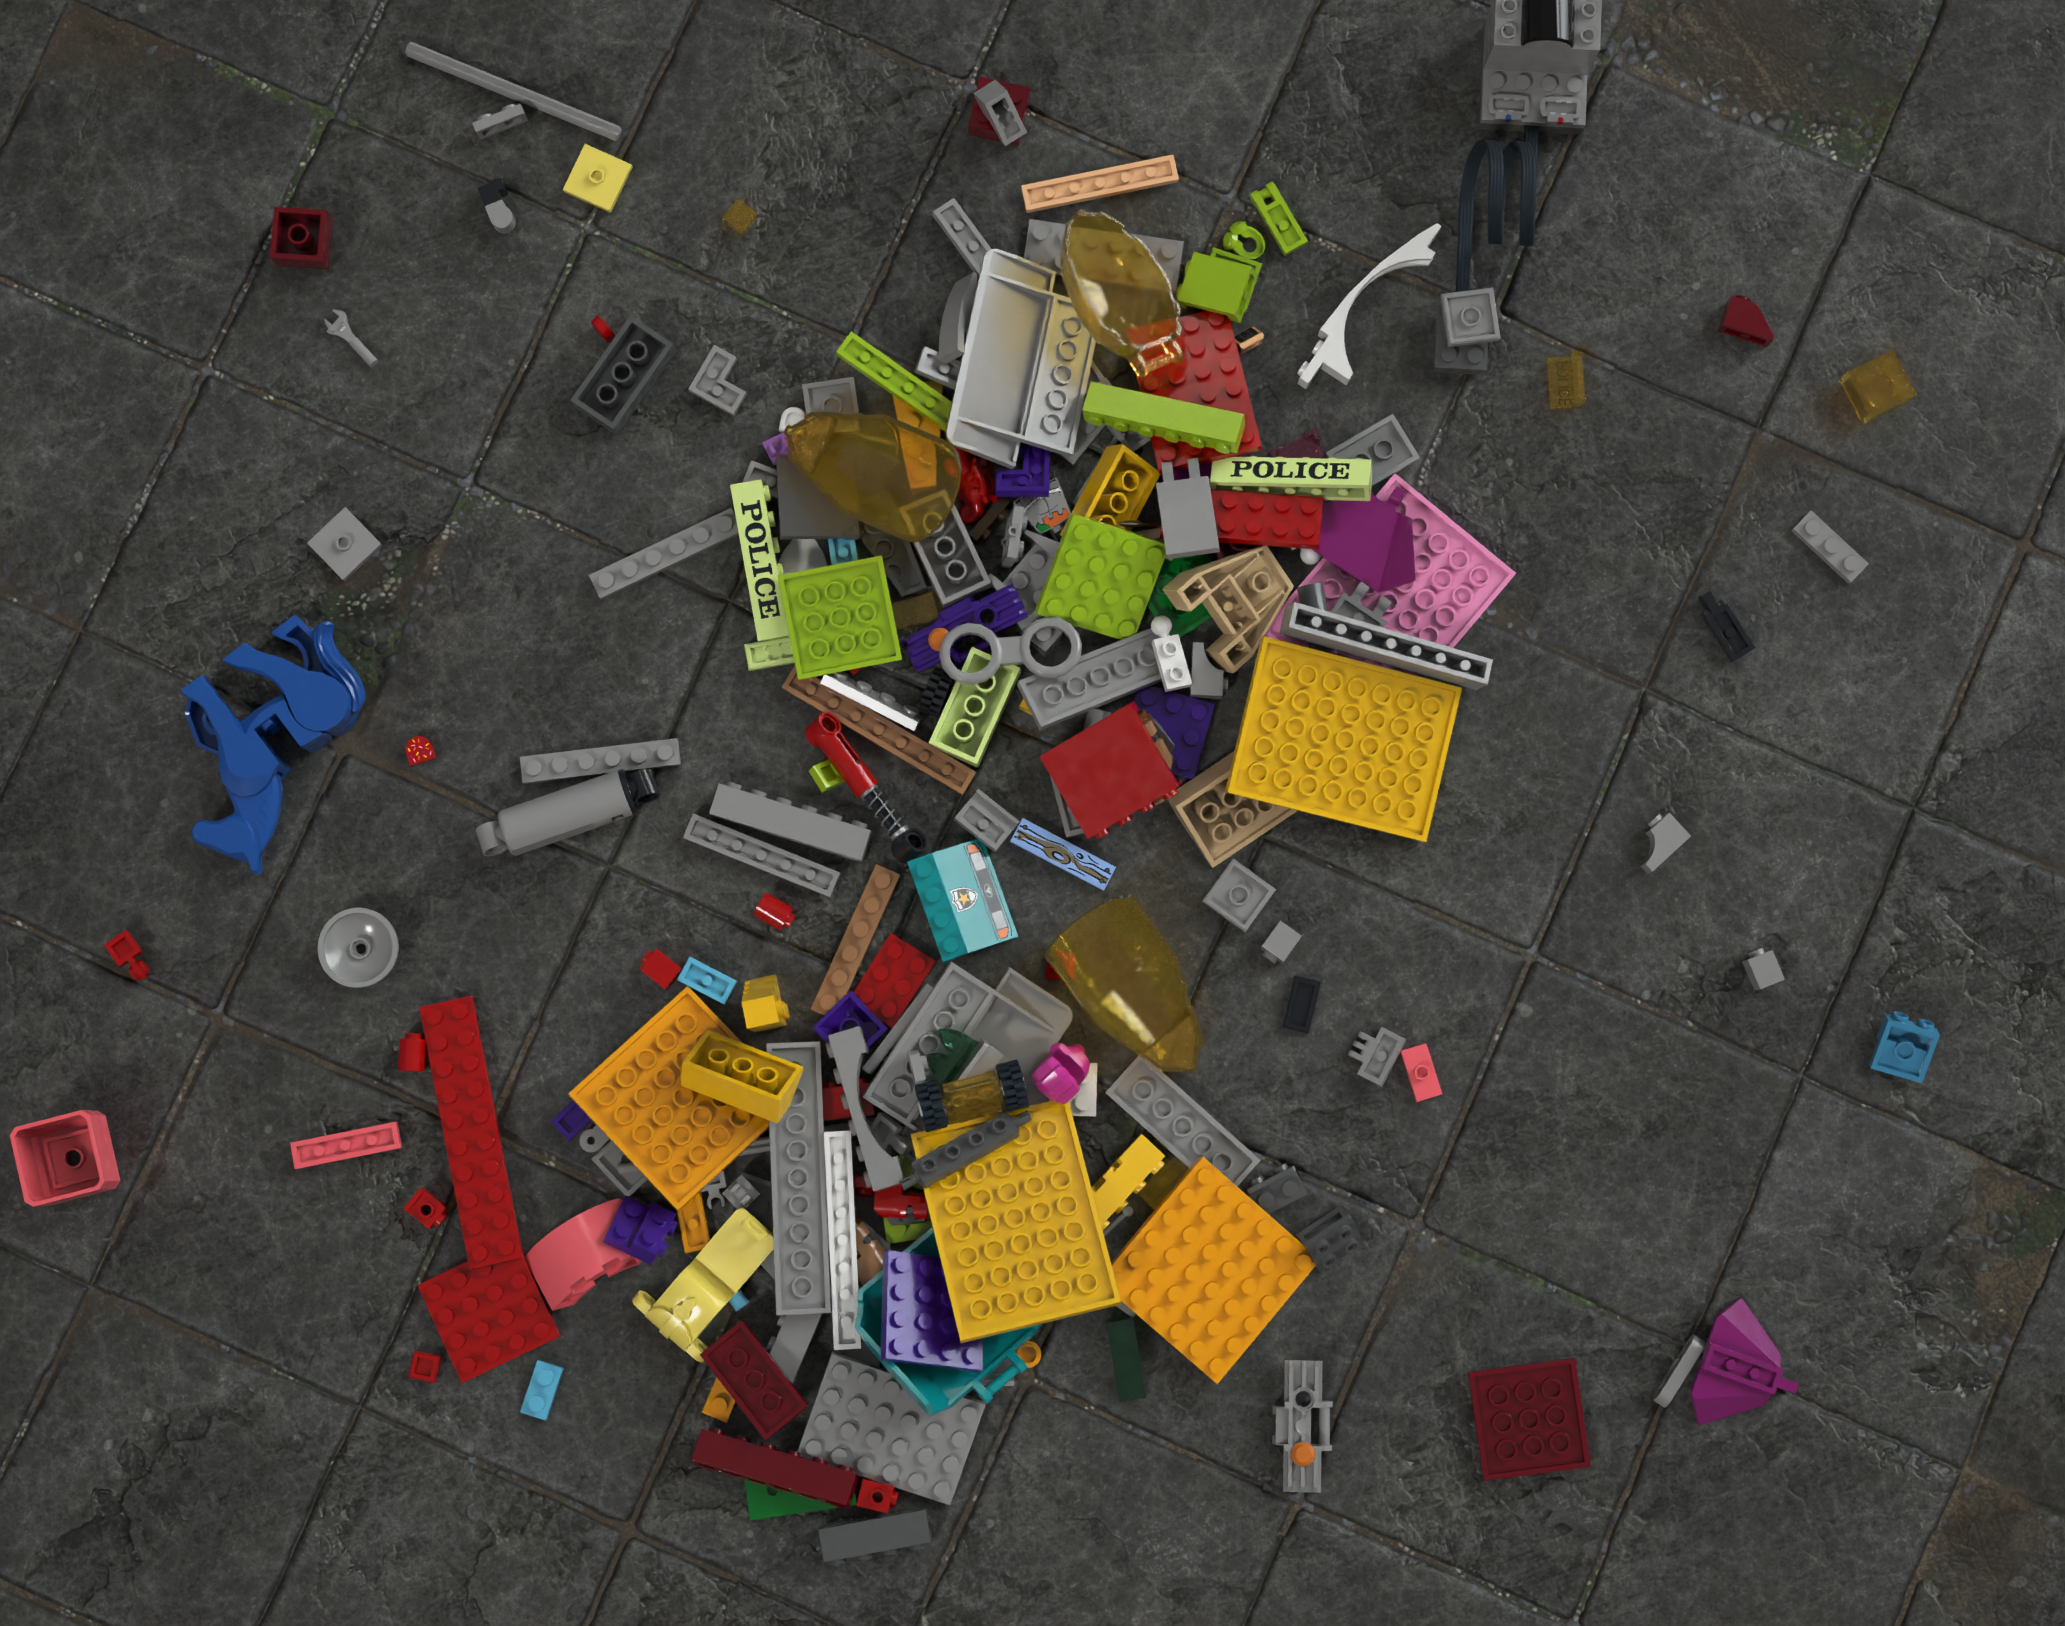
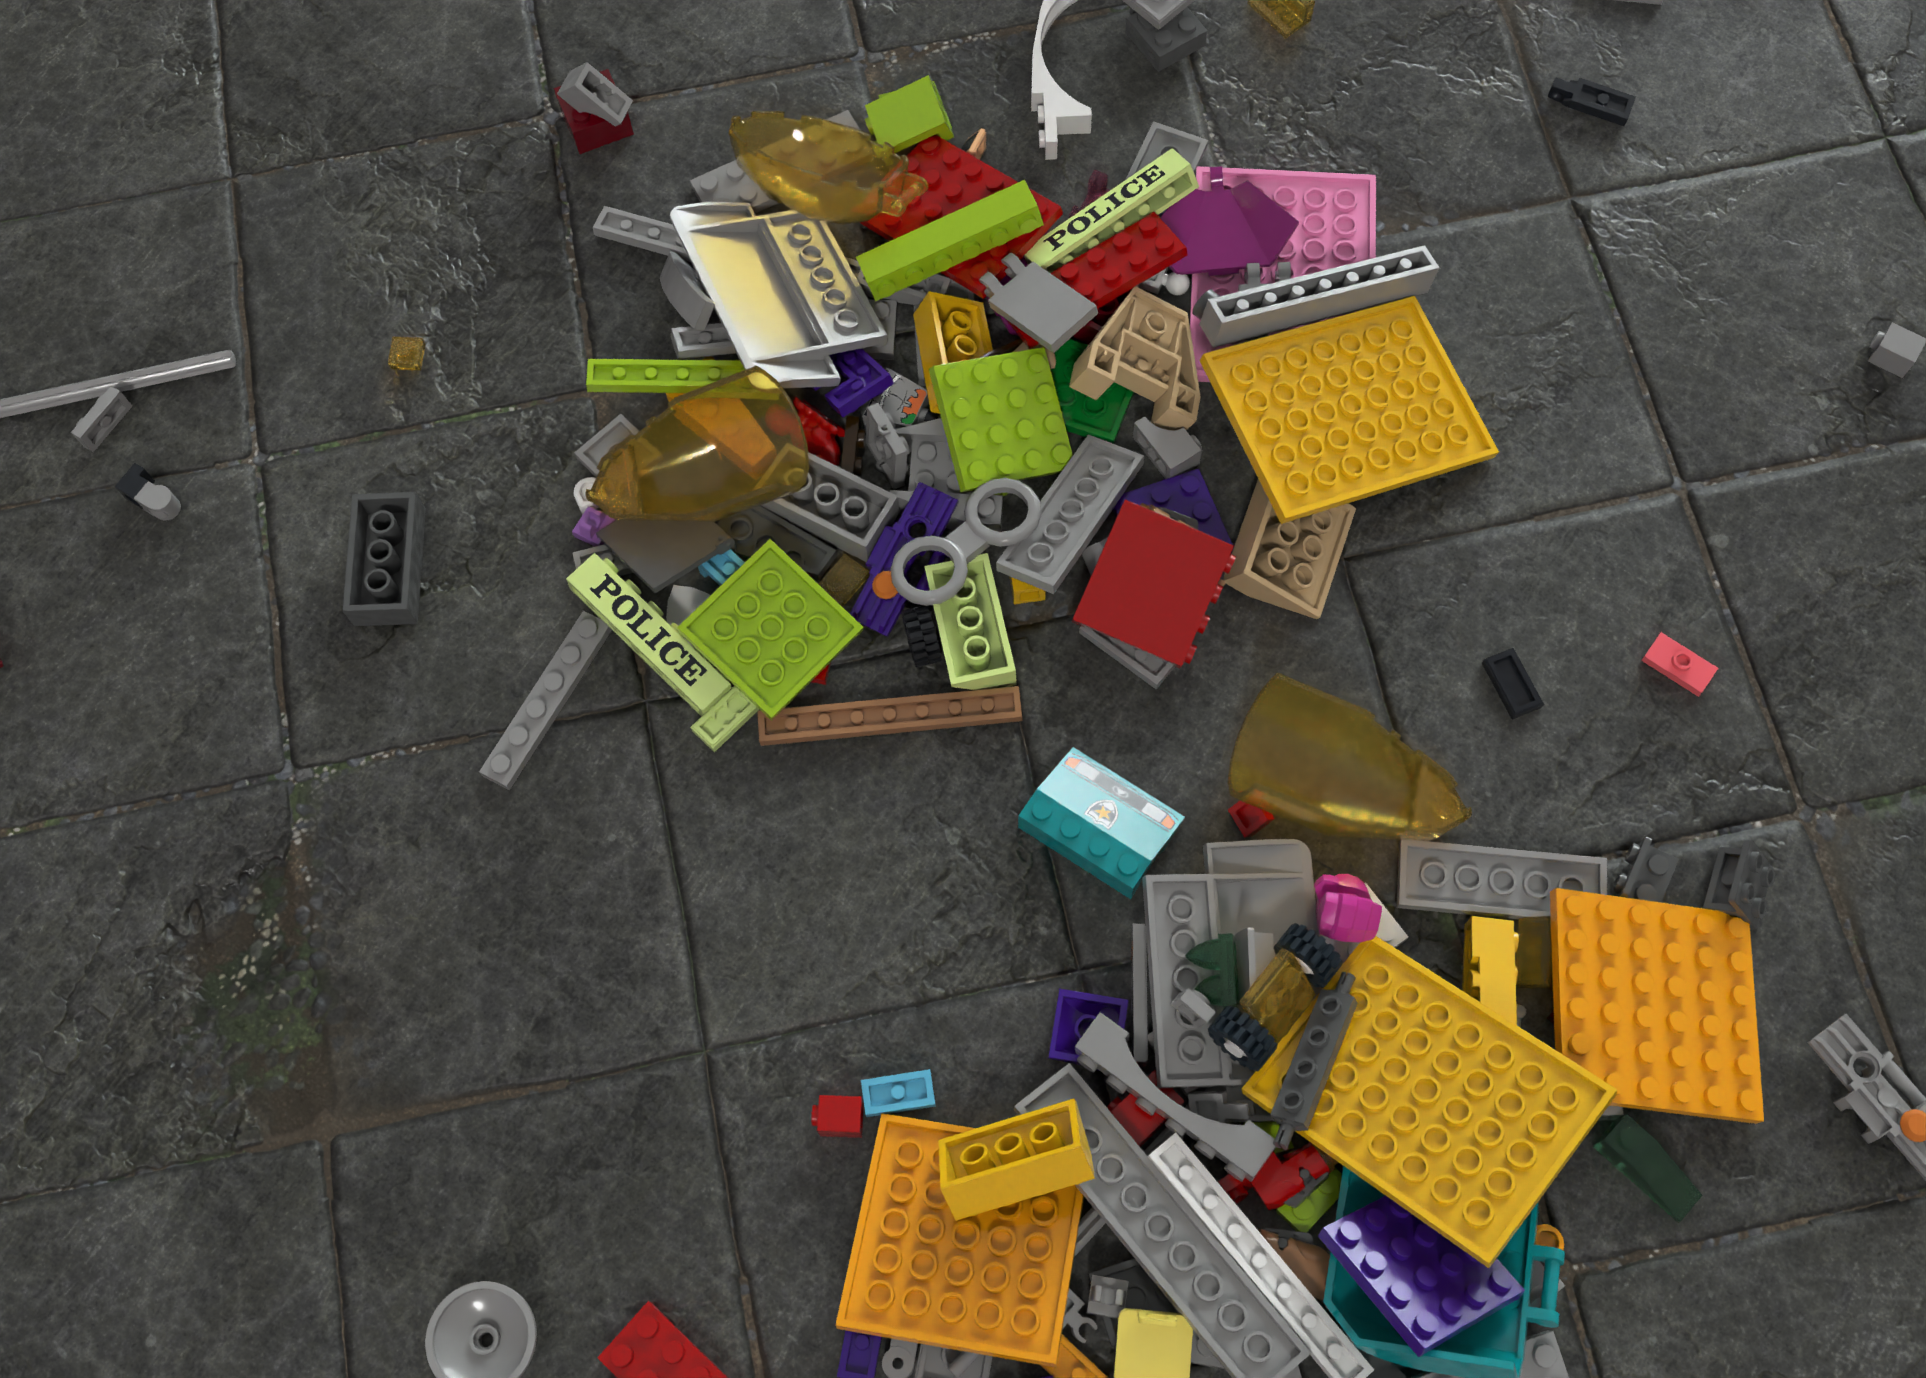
camera: 30 degrees left, 15 degrees down
(315, 706) = (262, 1105): blue animal -> none
(342, 329) = (54, 712): light grey piece -> none
(344, 544) = (190, 919): light grey plate -> none
(419, 751) = (412, 1075): red tile -> none
(567, 812) = (619, 1023): light grey piece -> none
(597, 178) = (237, 408): light yellow plate -> none
(600, 761) = (619, 949): light grey plate -> none
(603, 329) = (333, 533): red tile -> none
(711, 382) = (482, 512): light grey plate -> none
(761, 855) = (860, 922): light grey plate -> none
(763, 1004) = (983, 1067): yellow wedge -> none
(774, 912) = (918, 969): red brick -> none
(789, 822) = (866, 867): light grey brick -> none
(826, 734) = (841, 754): piece -> none
(826, 776) = (870, 794): lime plate -> none
(856, 939) = (1023, 940): medium nougat plate -> none
(881, 703) = (874, 686): light grey plate -> none
(893, 979) = (1093, 948): red plate -> none
(986, 820) = (1065, 726): light grey plate -> none
(1063, 854) = (1165, 706): light blue tile -> none
(1099, 183) = (748, 97): light nougat plate -> none
(1169, 656) = (1122, 449): white plate -> none
(1231, 241) = (891, 82): lime piece -> none
(1239, 895) = (1366, 625): light grey tile -> none
(1279, 219) = (919, 39): lime plate -> none
(1280, 943) = (1444, 637): light grey brick -> none
(1377, 1055) = (1625, 676): light grey hinge -> none
(1665, 837) = (1706, 302): light grey arch -> none

